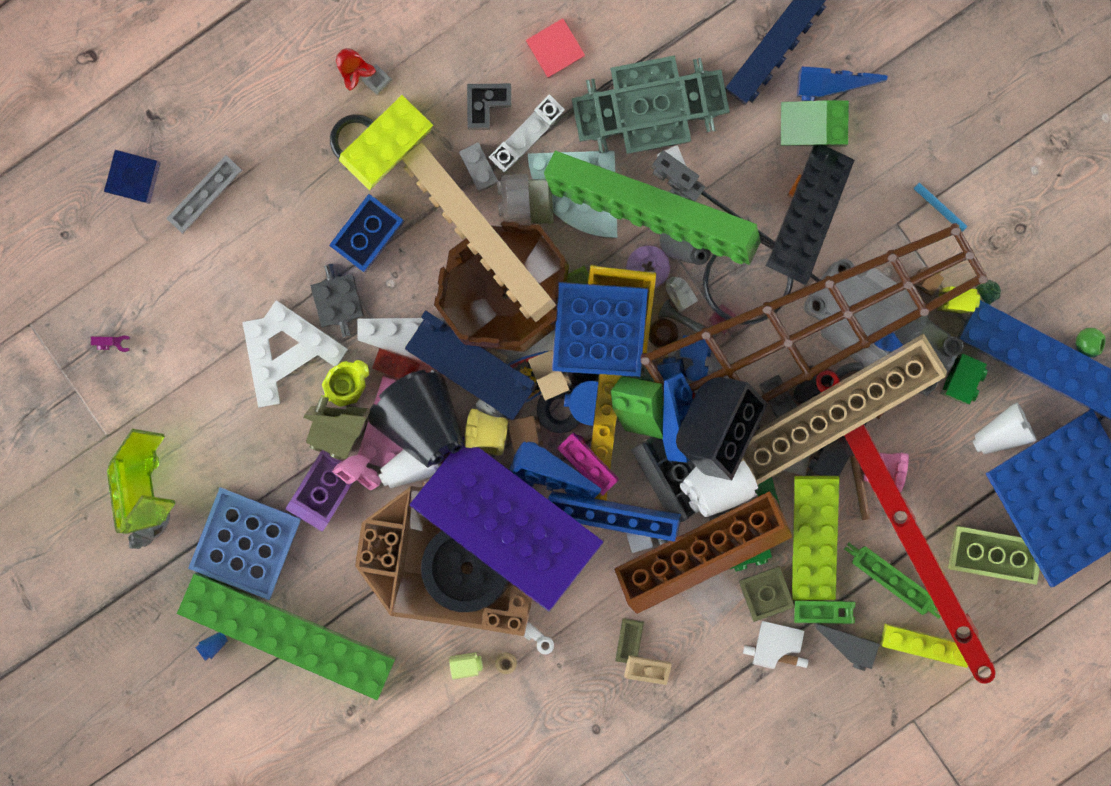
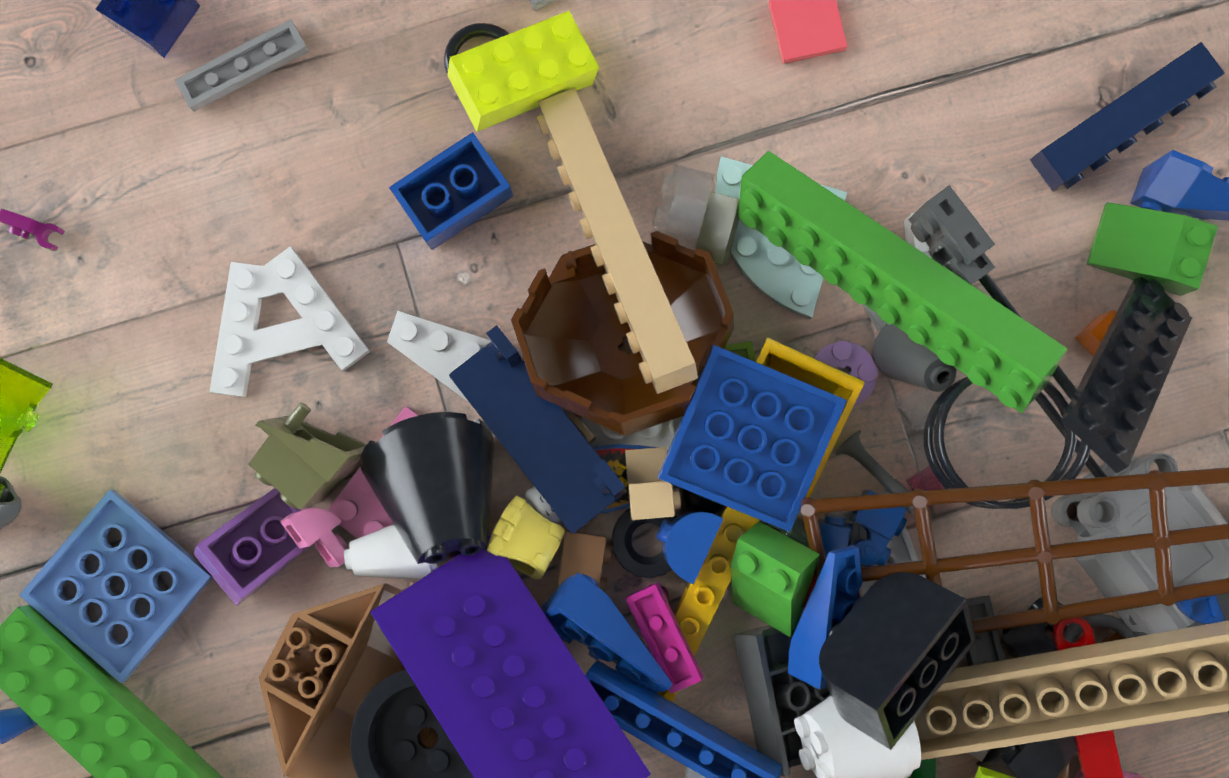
camera: 25 degrees right, 5 degrees down
(337, 300) = (378, 276): dark grey plate -> none
(345, 382) = (346, 397): neon yellow piece -> none
(394, 364) = (427, 393): clear red plate -> none
(478, 167) = (644, 151): light grey brick -> none
(482, 98) = (685, 56): dark grey brick -> none
(527, 134) = (701, 144): white slope -> none
(650, 105) = (919, 141): sand green piece -> none
(663, 332) = (837, 478): reddish brown brick -> none
(680, 293) = (879, 428): white rock -> none

